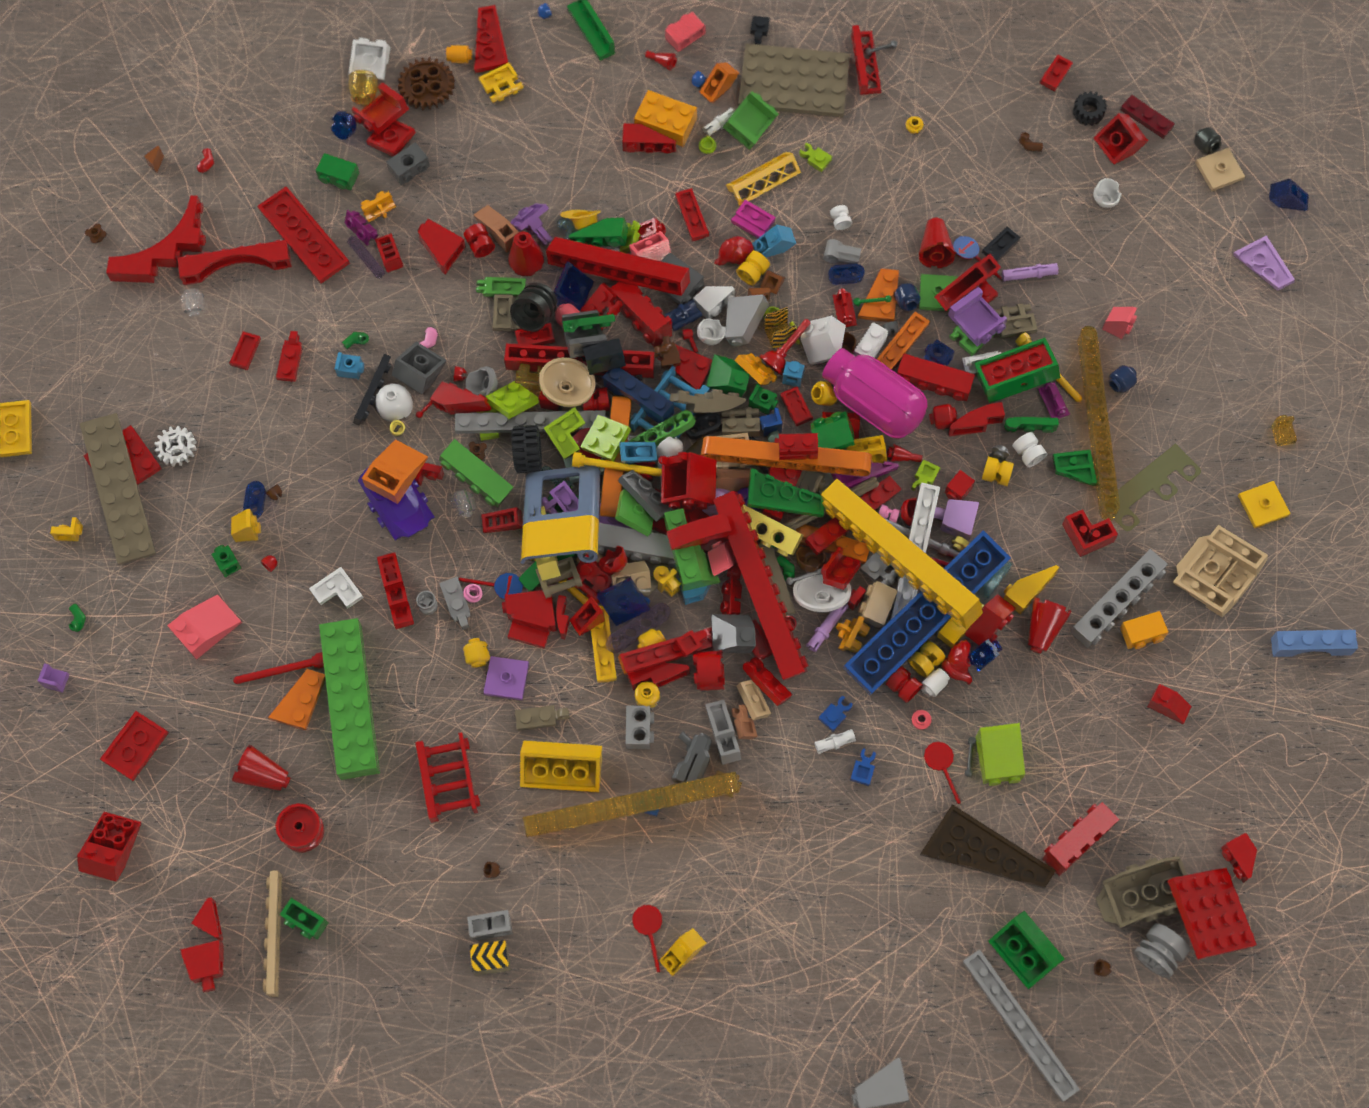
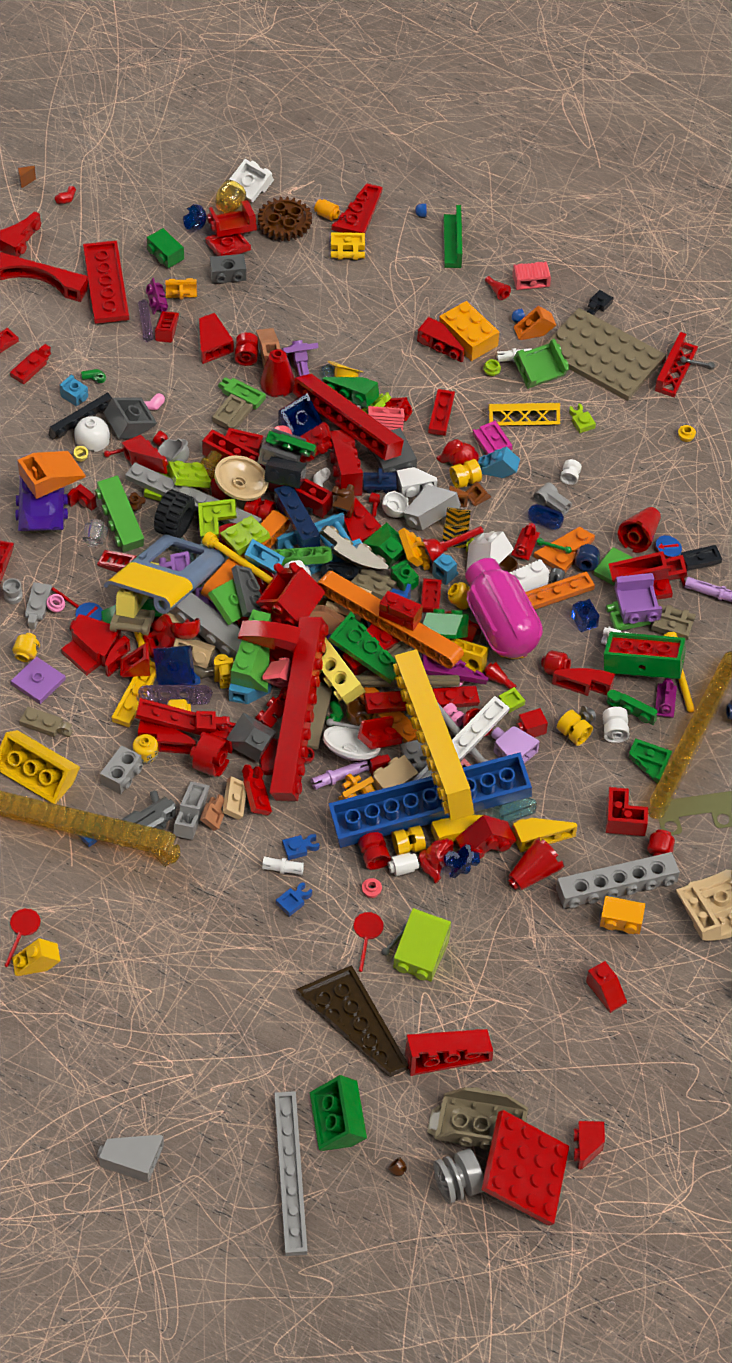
camera: 25 degrees right, 15 degrees down
(533, 307) = (255, 414): pearl dark grey wheel -> none
(626, 338) = (321, 476): none -> white arm
(936, 377) = (570, 630): red brick -> none
(1134, 544) = (660, 842): none -> red head

